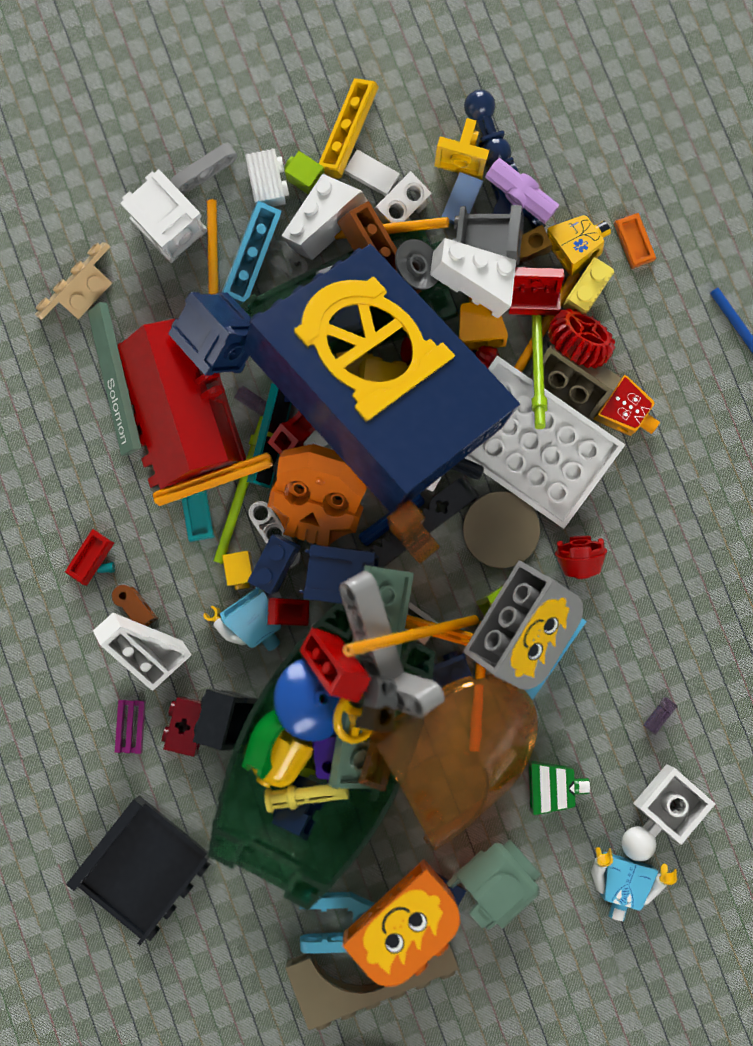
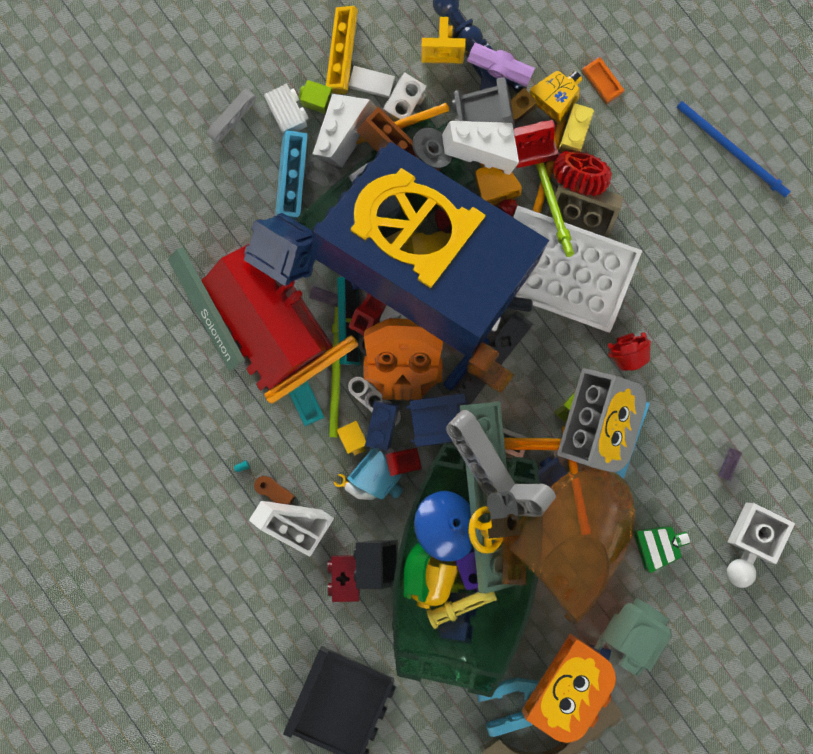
camera: 10 degrees left, 0 degrees up
(81, 288) = (157, 240): tan bracket -> none
(89, 557) = (226, 461): red tile -> none
(120, 726) = (301, 610): magenta tile -> none
(164, 215) = (211, 163): white container -> none
(212, 246) = (256, 178): light orange piece -> none
(338, 673) = (458, 492): red brick -> none
(409, 635) = (512, 452): light orange piece -> none
(463, 194) = (451, 80): light blue tile -> none
(501, 530) = (558, 347): dark tan tile -> none
(628, 409) = (635, 221): torso -> none
(628, 882) = (741, 606): torso -> none

